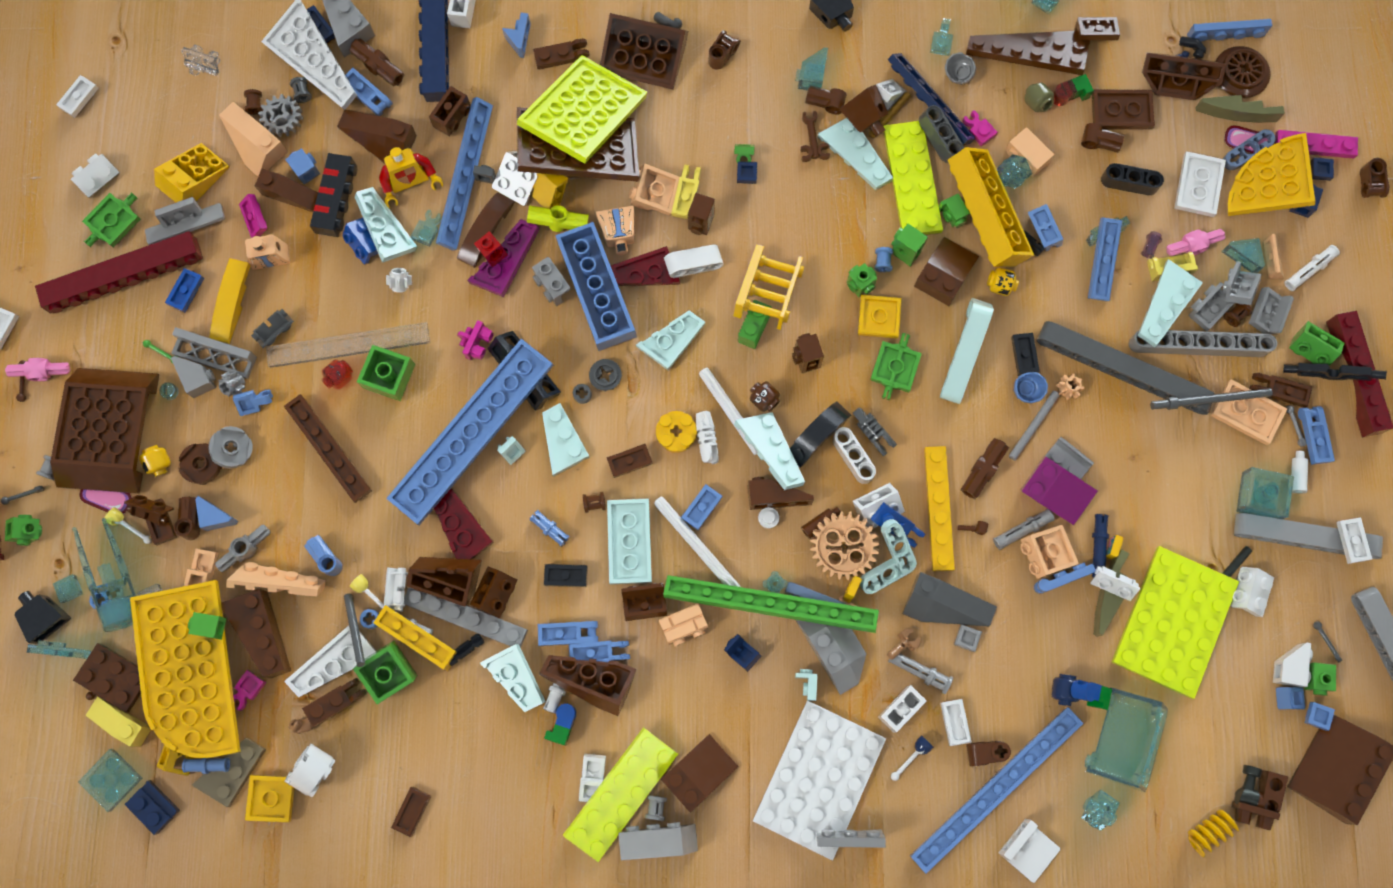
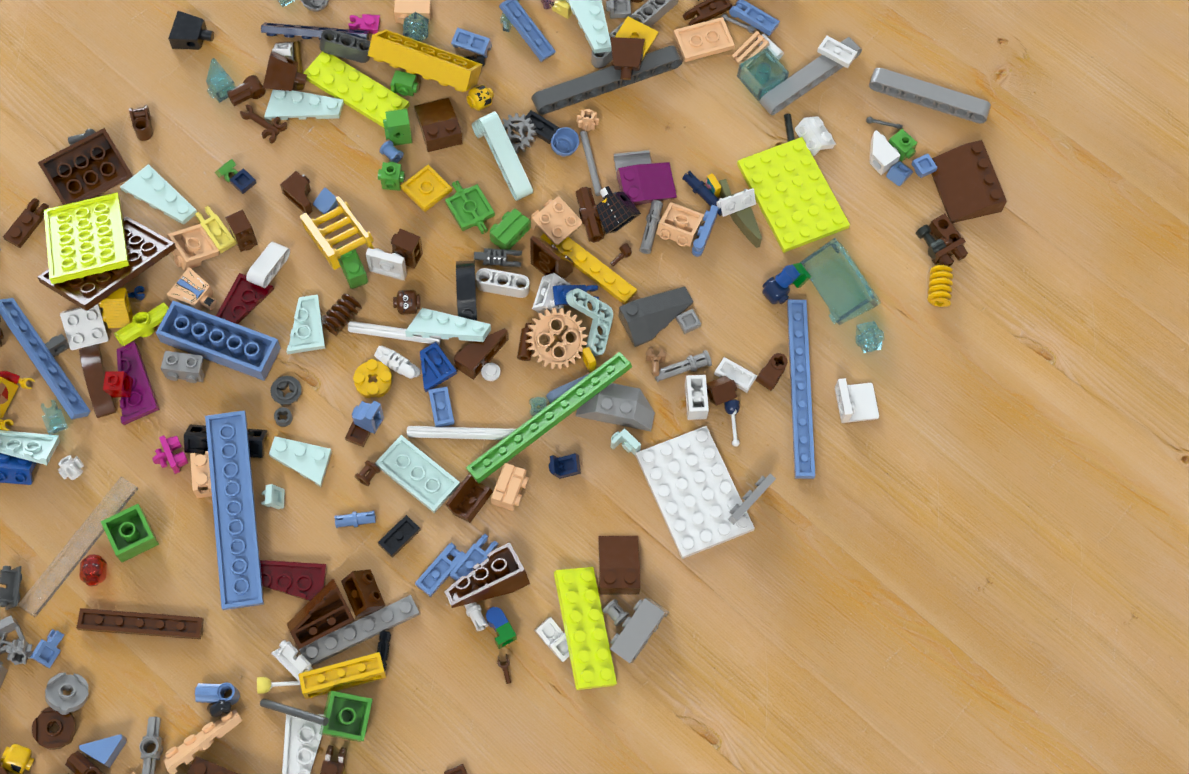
camera: 55 degrees left, 10 degrees down
(311, 569) = (218, 708): none -> black arm
(365, 614) = (294, 693): medium blue bush -> none
(476, 377) = (200, 474): none -> light nougat brick
(516, 677) = (436, 630): light aqua wing -> none
(535, 755) = (504, 666): none -> reddish brown hand
(578, 186) = (138, 296): none -> blue hand
(636, 460) = (368, 416): none -> medium blue arch
(676, 123) = (159, 194): none -> light aqua wing
(705, 355) = (339, 313): none -> reddish brown piece
(731, 470) = (435, 366): none -> blue wing
(779, 220) = (296, 190): none -> reddish brown arch
(783, 356) = (386, 264): none -> white plate
(790, 251) = (325, 201): none -> medium blue slope
(906, 417) = (510, 229): none -> bright green brick
(910, 475) = (549, 259): none -> reddish brown slope
(928, 724) = (721, 390): none -> reddish brown brick
(950, 447) = (556, 220): none -> light nougat bracket
(1007, 488) = (615, 210): none -> black torso
(1008, 341) = (521, 128): none -> light grey gear
(1161, 365) = (627, 55): none -> reddish brown torso
(1174, 402) = (657, 70): dark grey bar -> none
(1186, 355) = (634, 29): none -> yellow plate
(1299, 461) = (760, 39): none -> light nougat tile

